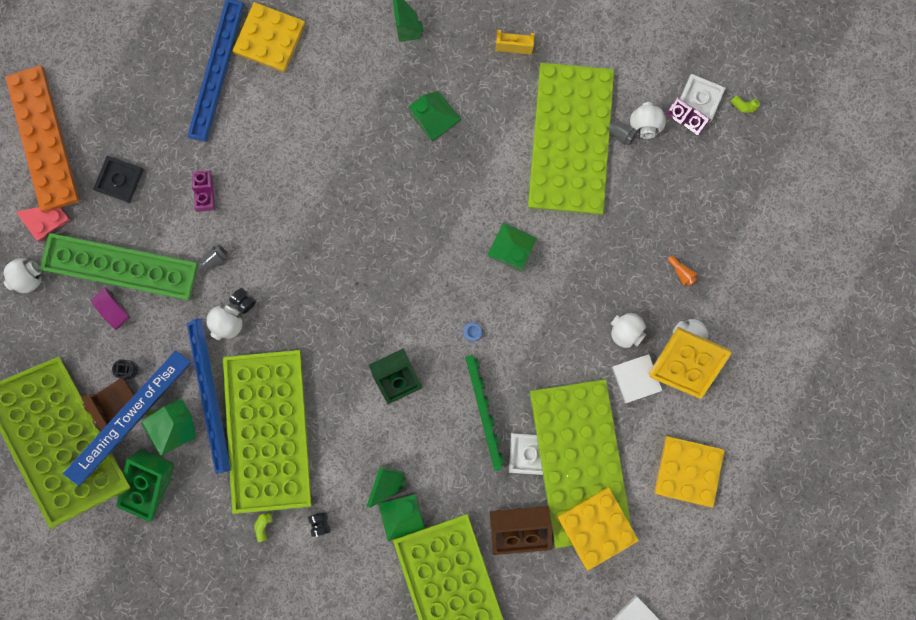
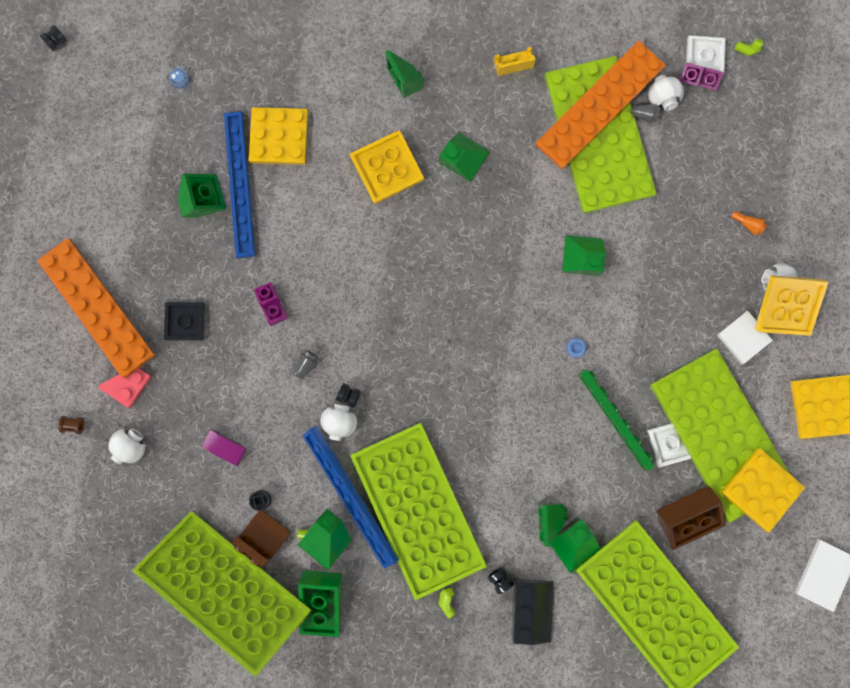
camera: 20 degrees left, 0 degrees up
(119, 266) = (217, 404): bright green plate -> none
(126, 419) = (283, 546): blue tile -> none
(175, 67) = (200, 195): none -> green slope
(337, 564) = (532, 611): none -> black slope
(358, 100) = (386, 167): none -> yellow plate
(395, 376) = (520, 415): dark green slope -> none
(579, 110) = (600, 105): none -> orange plate
(628, 330) = (720, 295): white plant -> none

